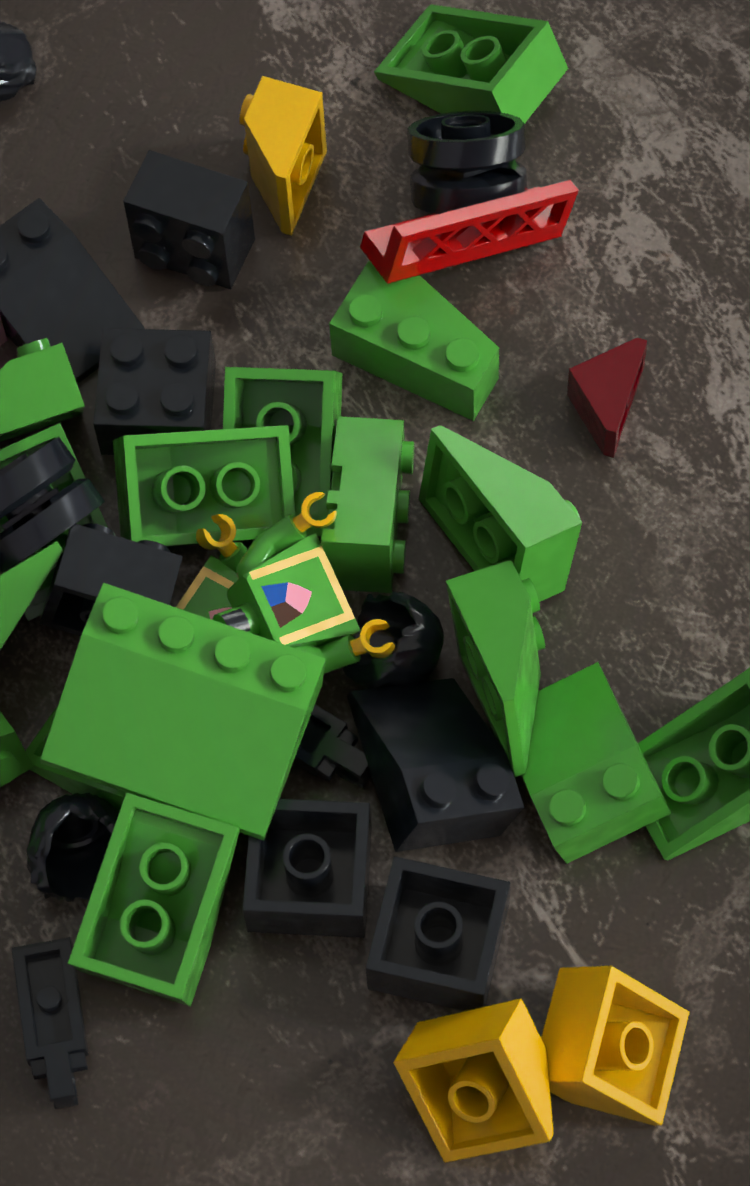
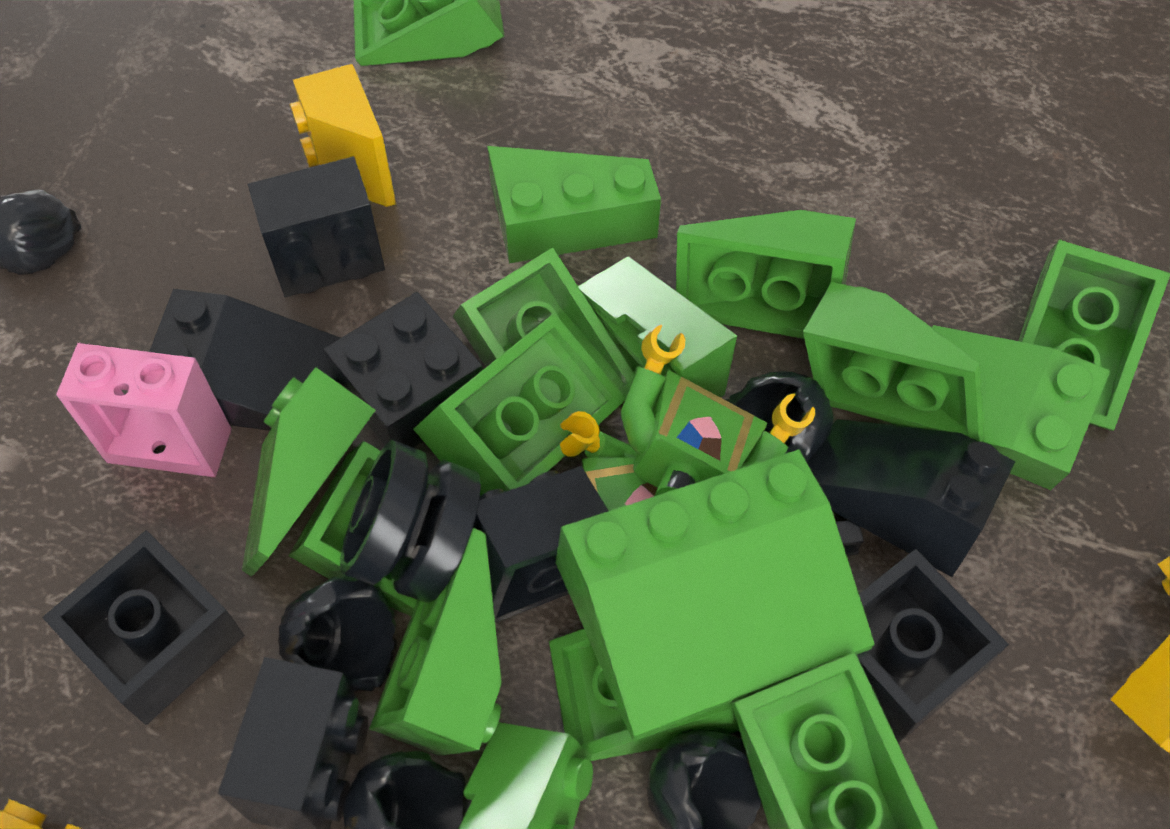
camera: 45 degrees left, 5 degrees down
(438, 935) = (1060, 613): black brick -> none
(465, 159) = (498, 58): black wheel -> none
(469, 232) = (542, 103): red fence -> none
(605, 390) = (742, 153): dark red slope -> none

